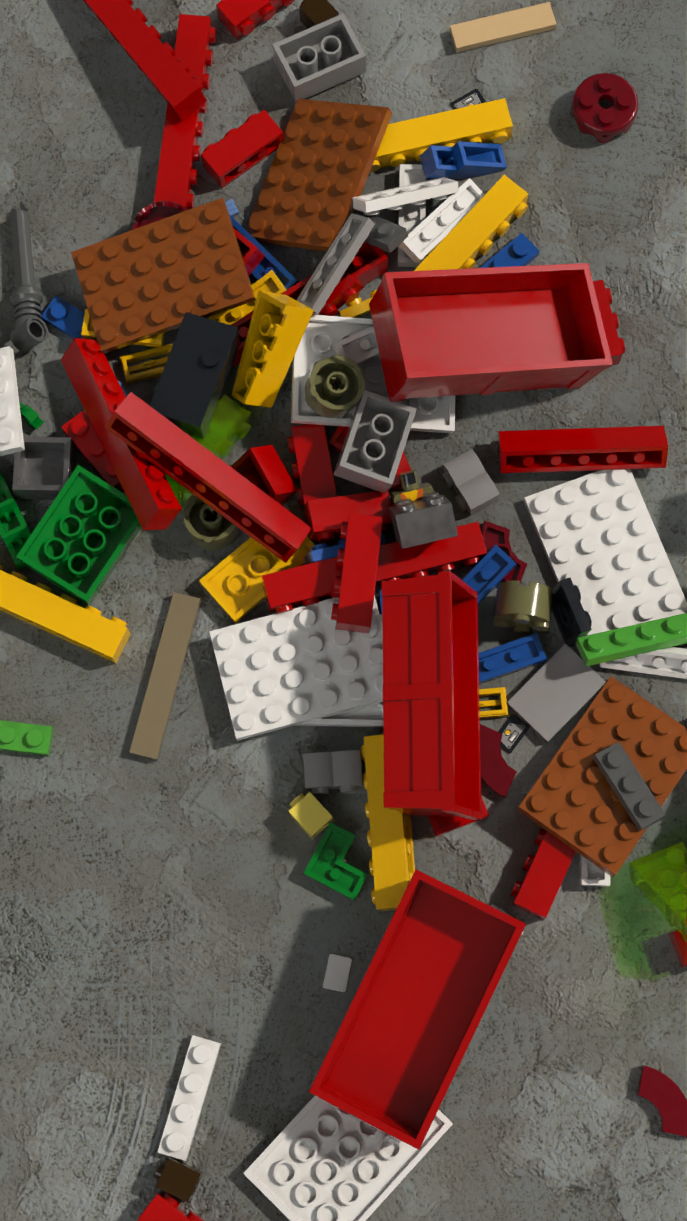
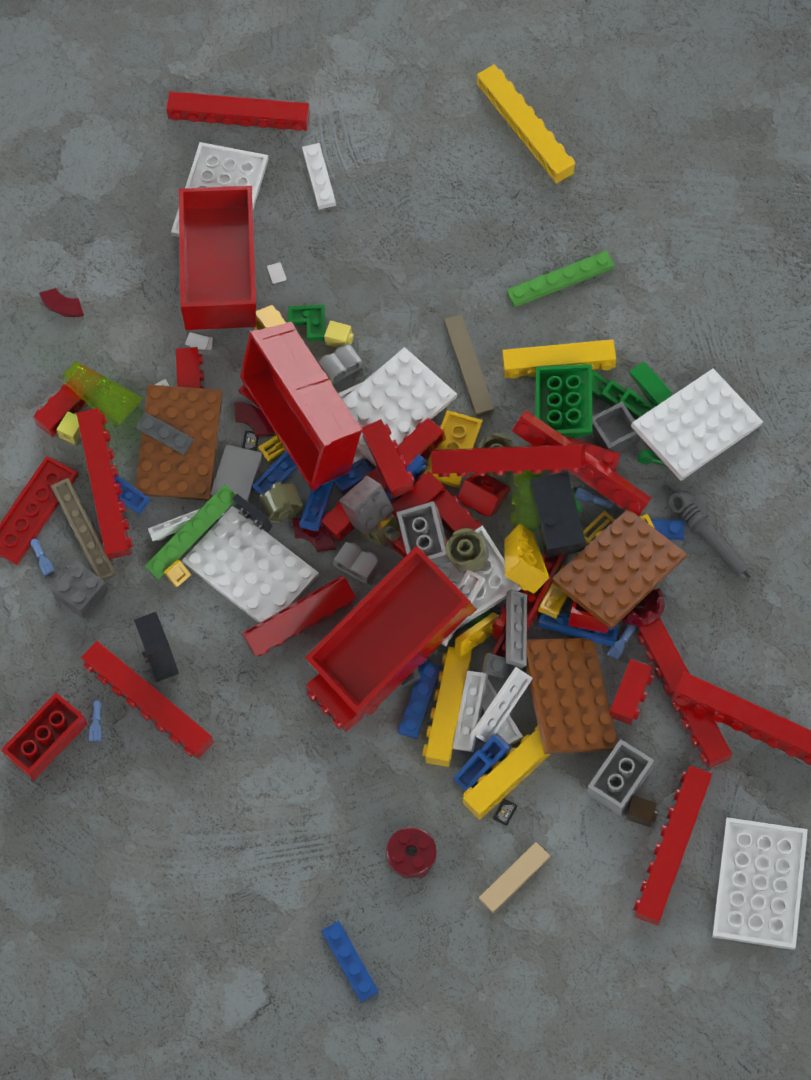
camera: 150 degrees right, 10 degrees down
(178, 1178) = (300, 136): dark brown brick -> none

